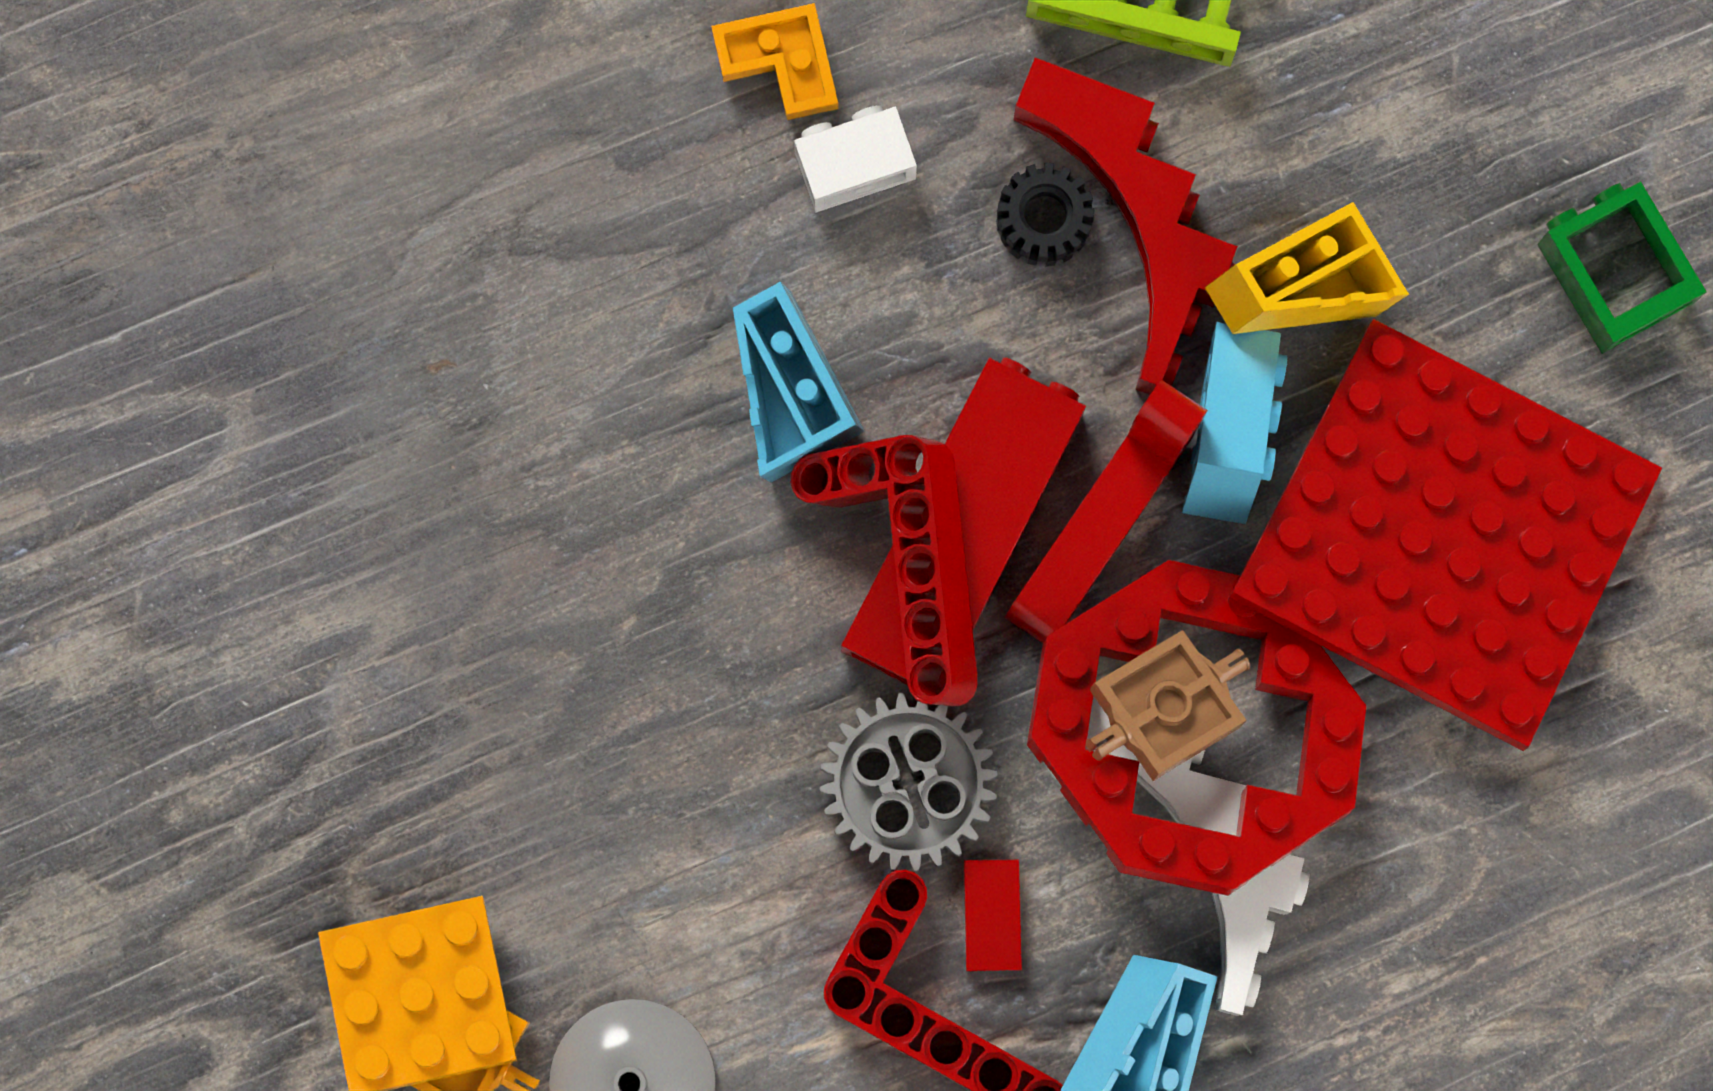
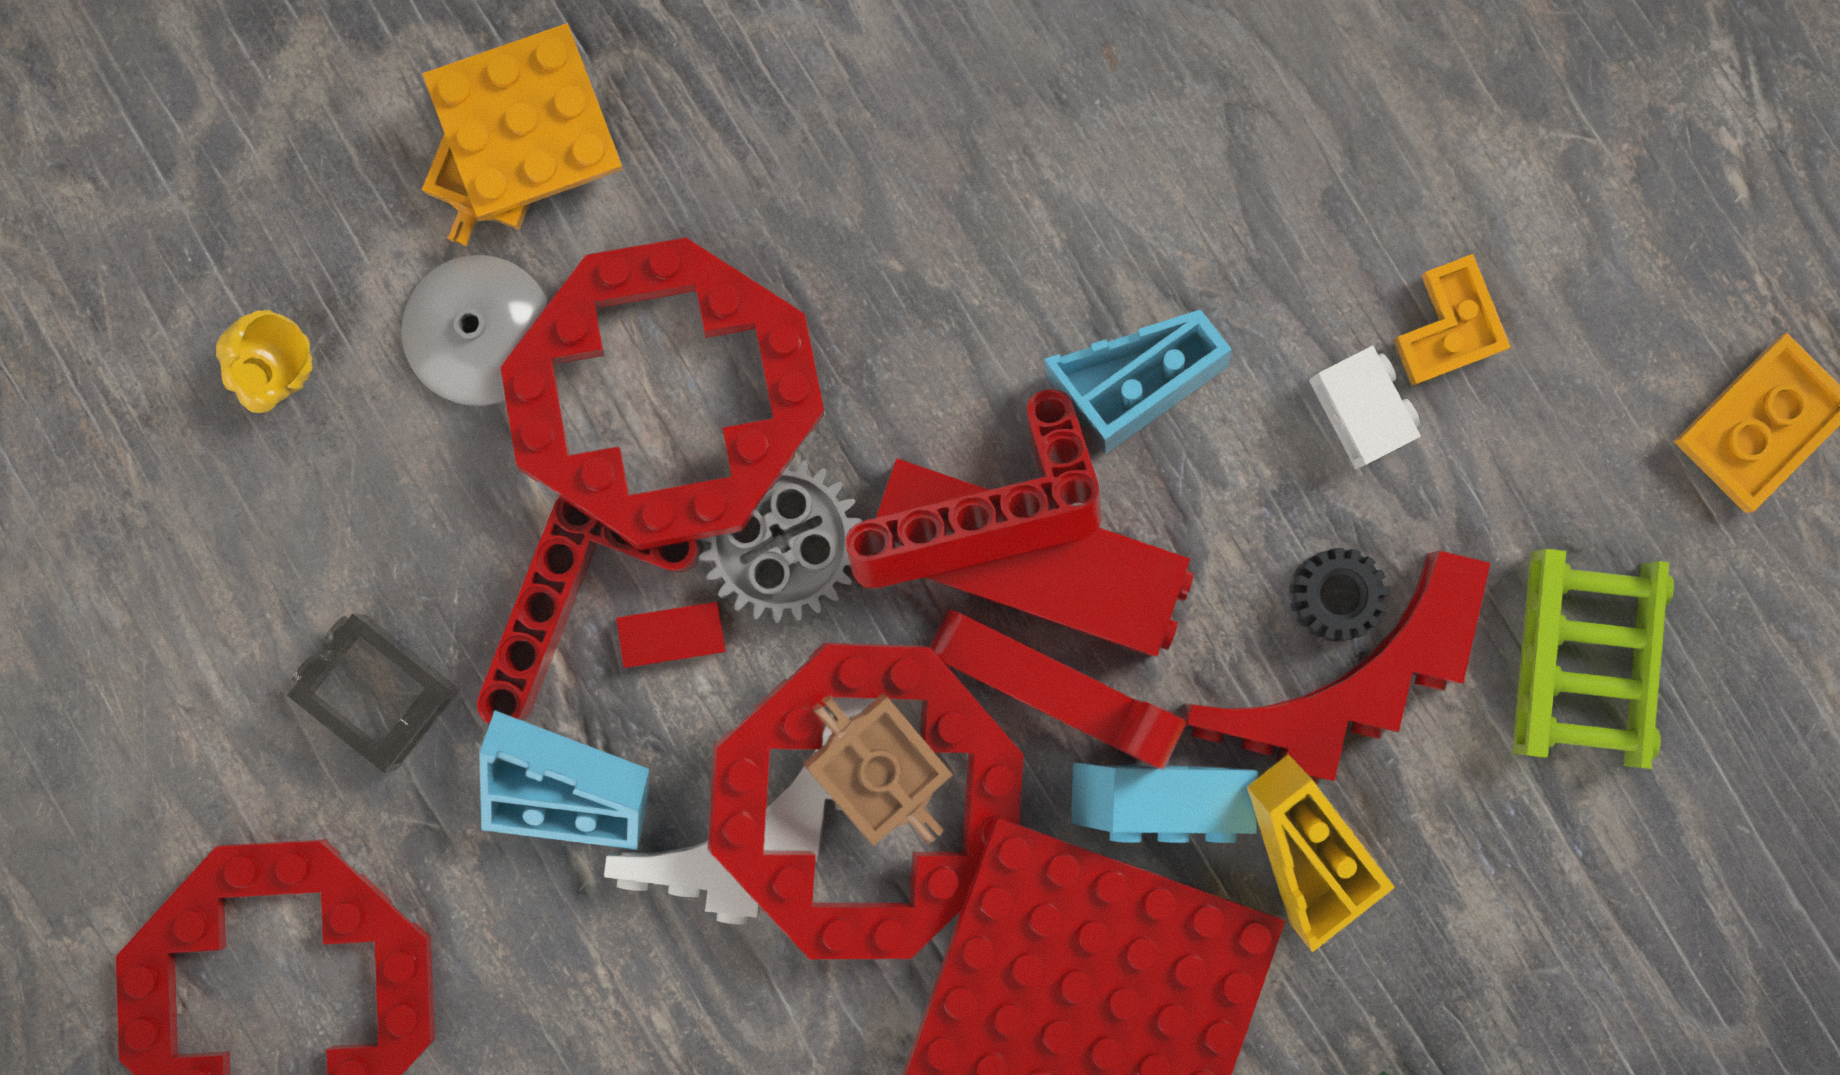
camera: 80 degrees right, 5 degrees up
(819, 963) = (597, 479): none -> red plate

